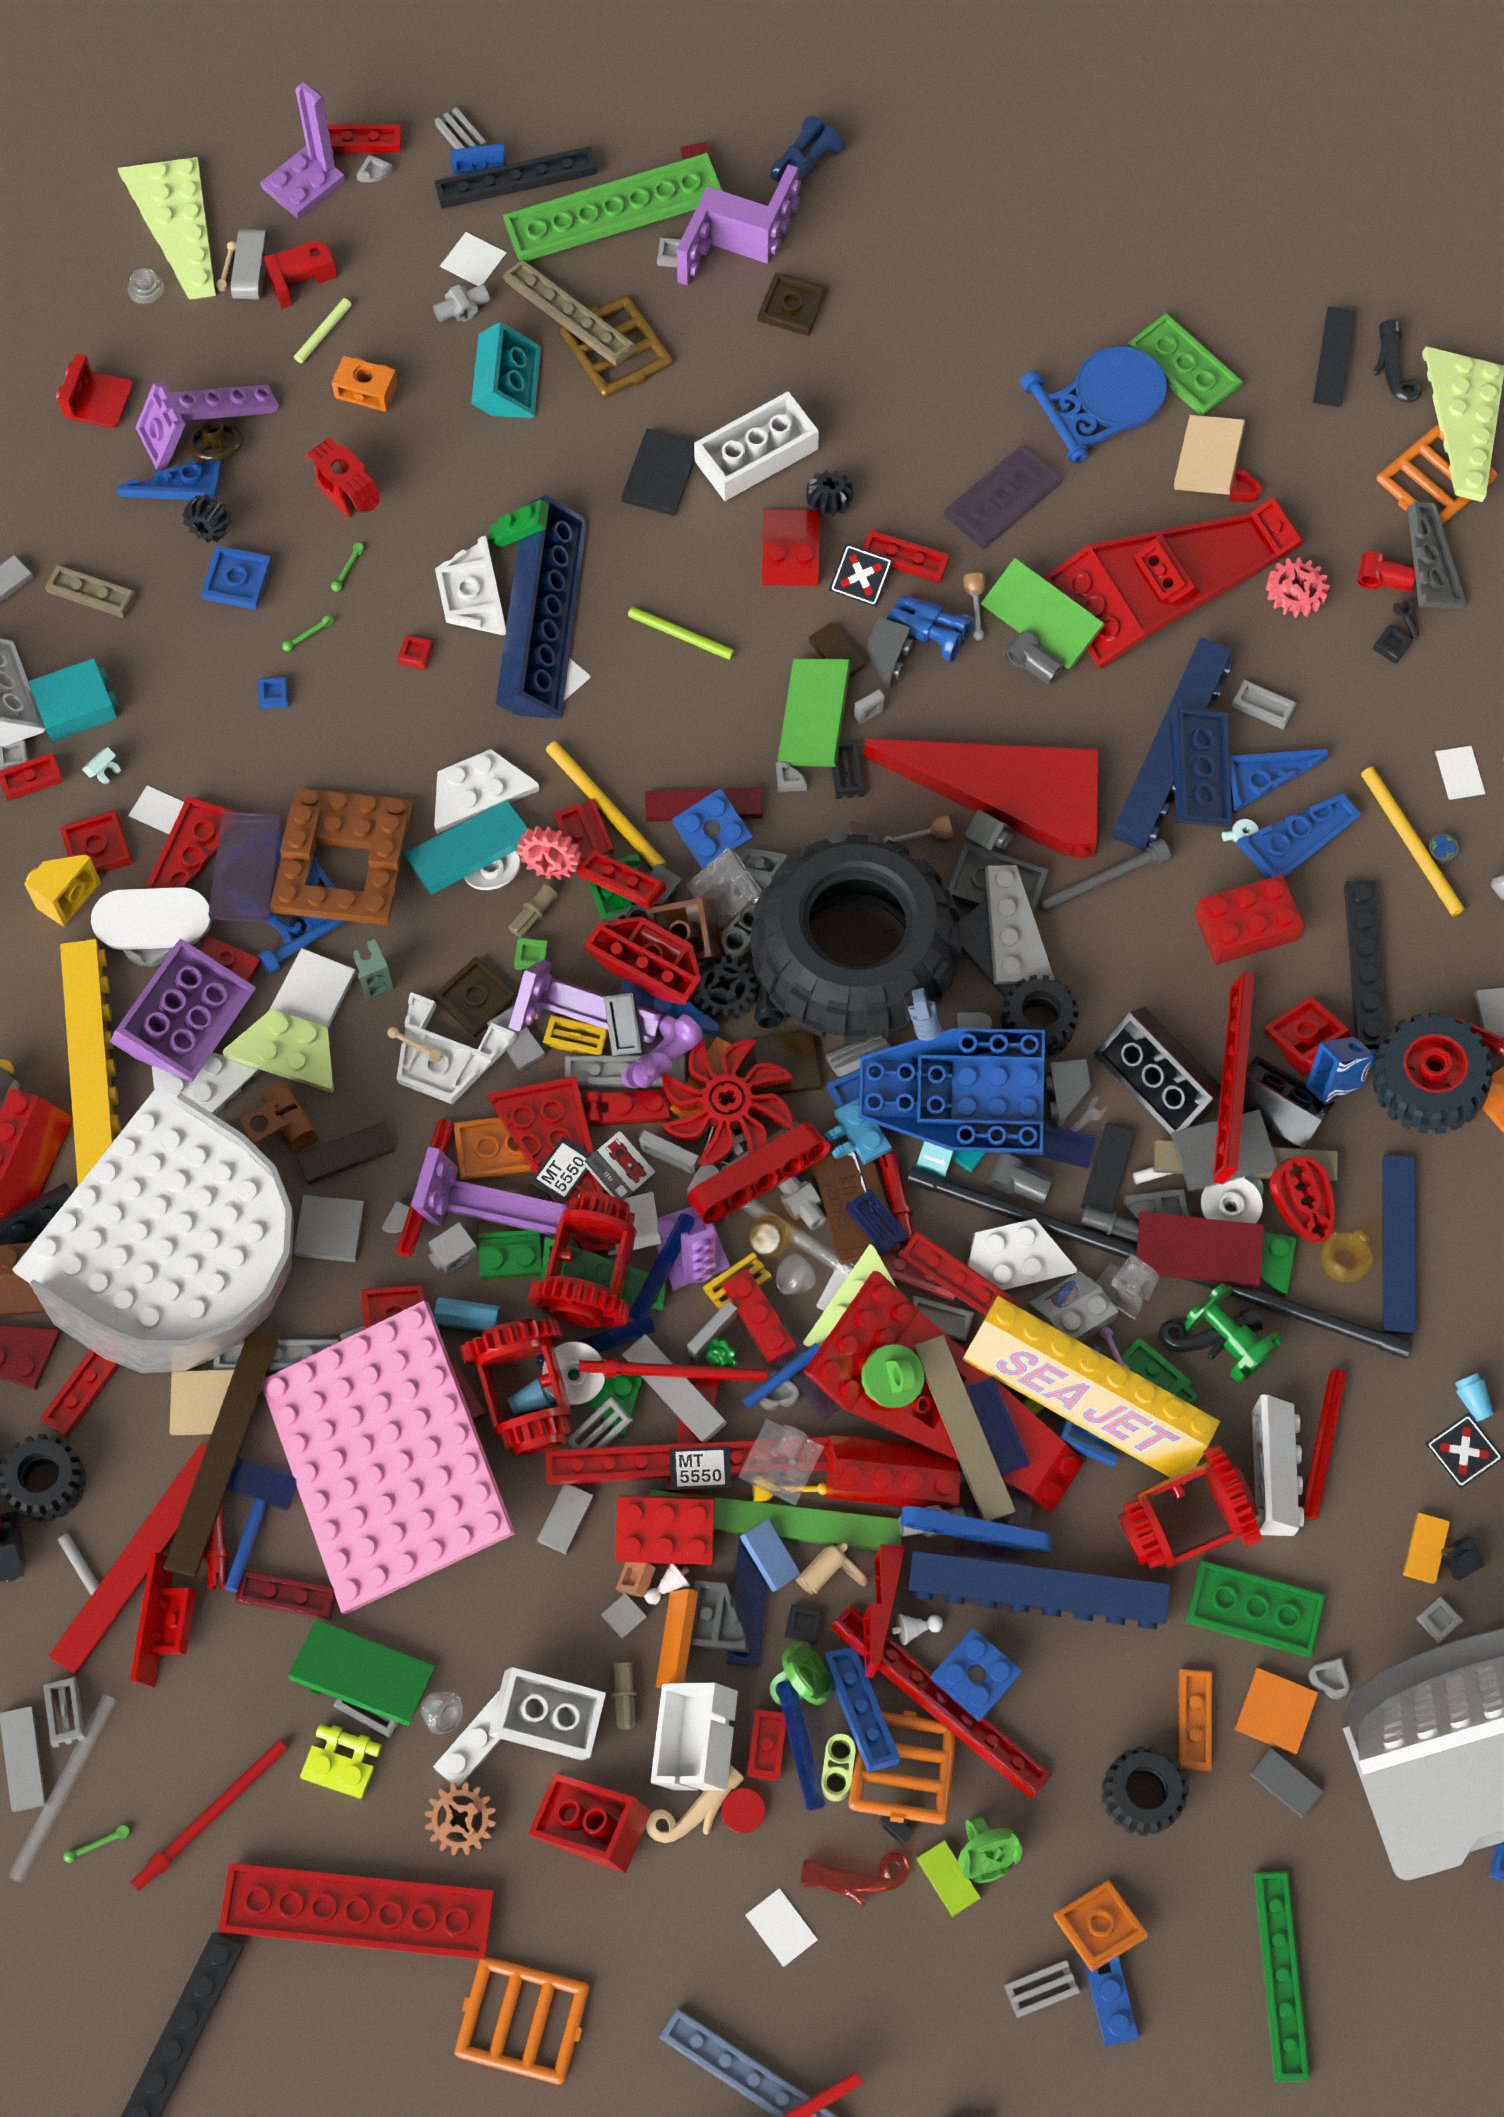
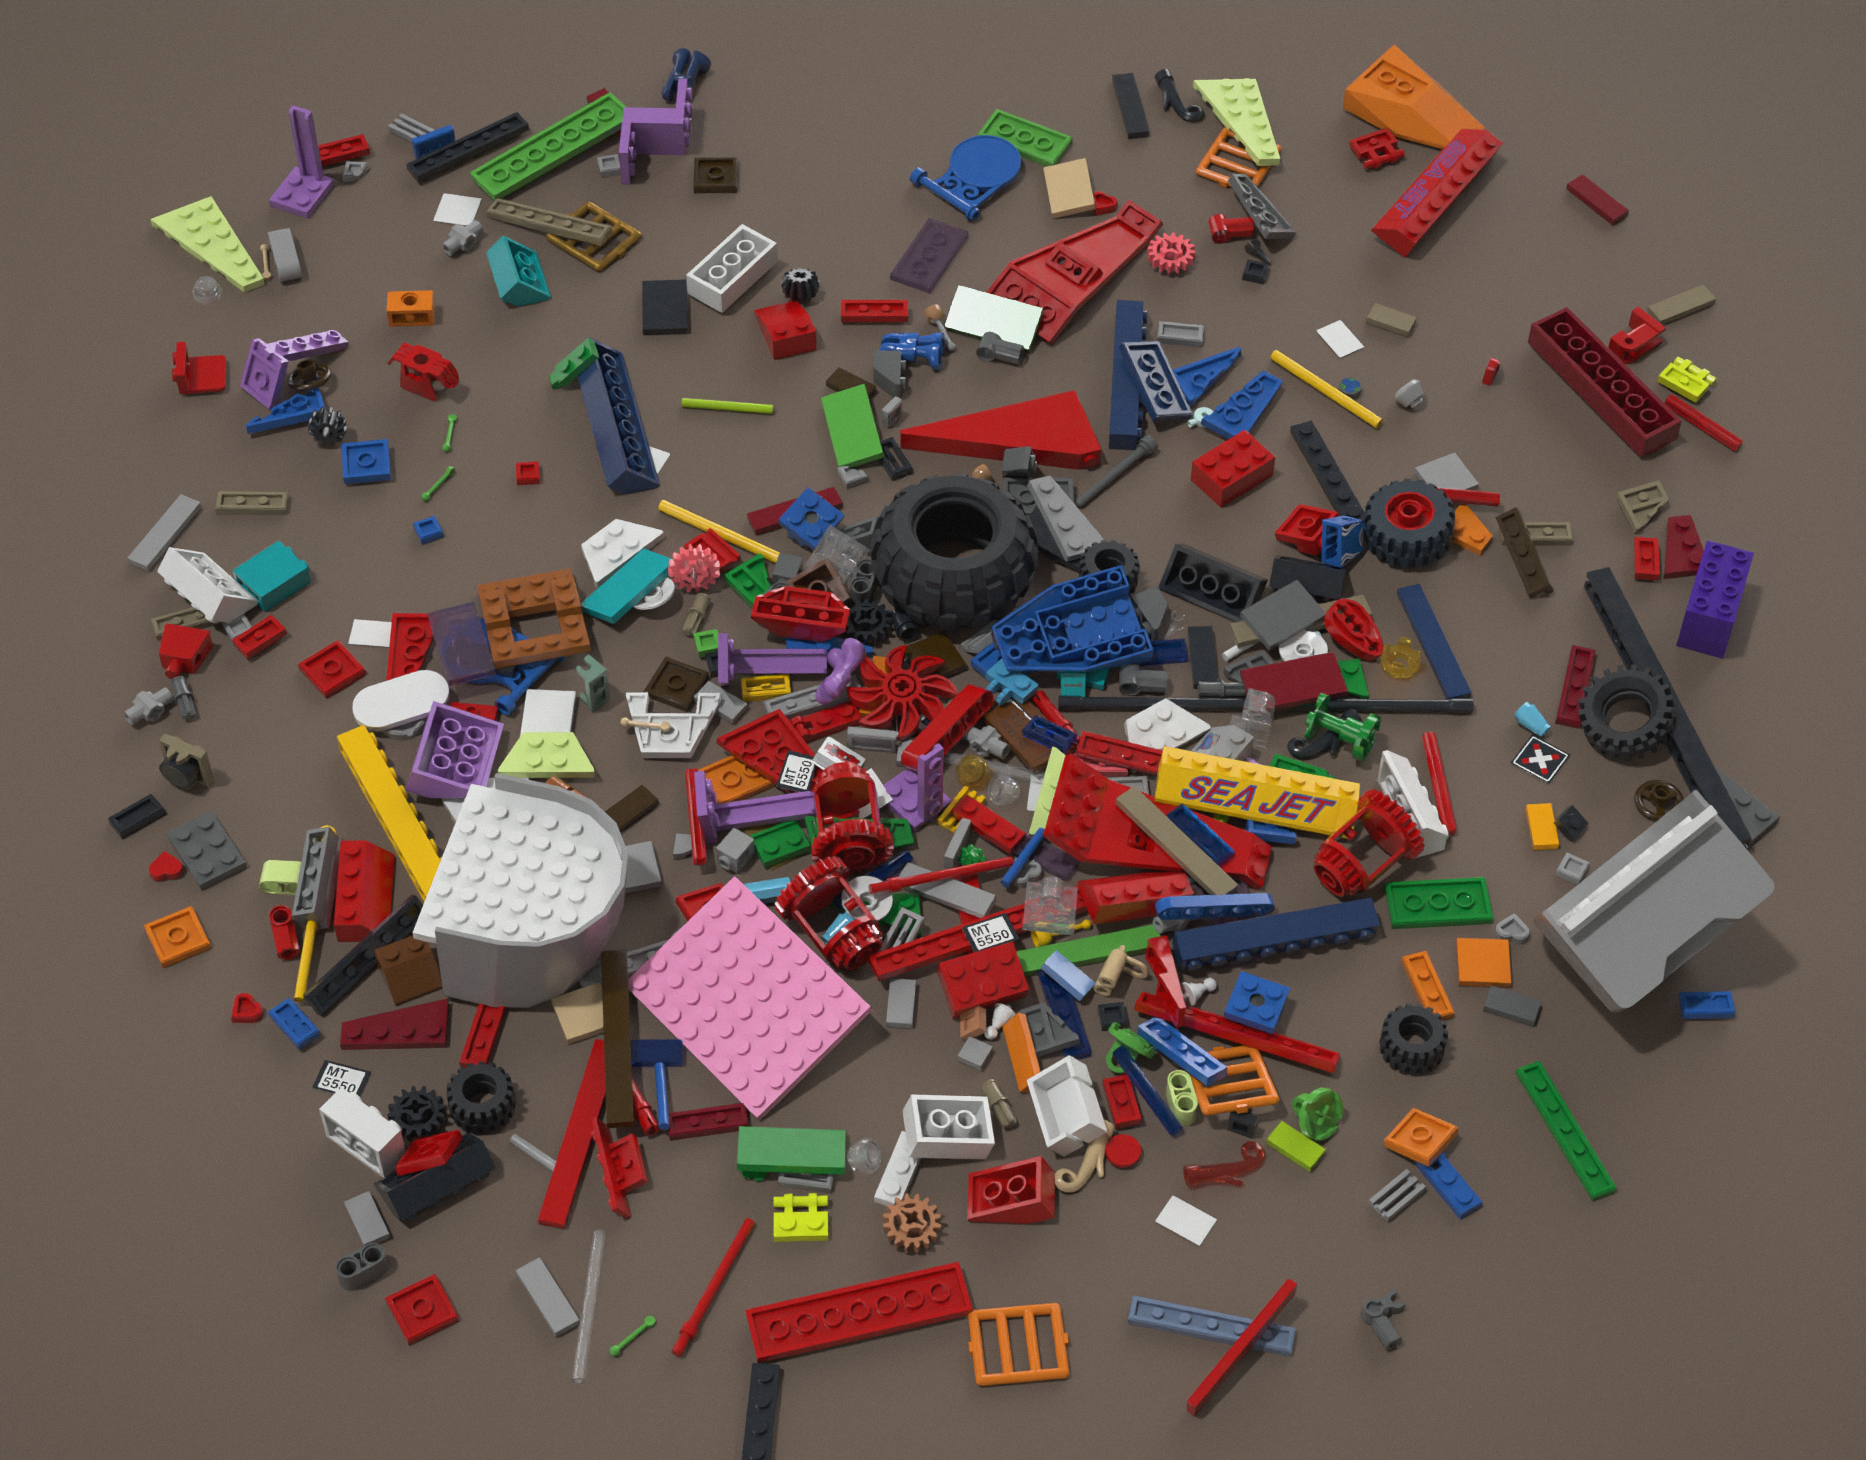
camera: 20 degrees left, 15 degrees down
(62, 886) = (320, 697): yellow slope -> none
(68, 1735) = (576, 1264): light grey tile -> none
(100, 763) = (313, 612): light aqua tile -> none
(298, 265) = (324, 245): red piece -> none
(322, 330) = (361, 283): yellowish green bar -> none
(470, 590) = (554, 420): white wing -> none
(621, 879) = (757, 569): red tile -> none
(623, 1023) = (801, 663): tile -> none
(661, 1268) = (902, 810): clear blue axle -> none
(861, 575) = (847, 331): black sticker -> none
(893, 1376) = (1109, 822): bright green tile -> none
(924, 1016) = (1029, 579): sand blue hinge -> none
(1233, 1079) = (1270, 564): red tile -> none

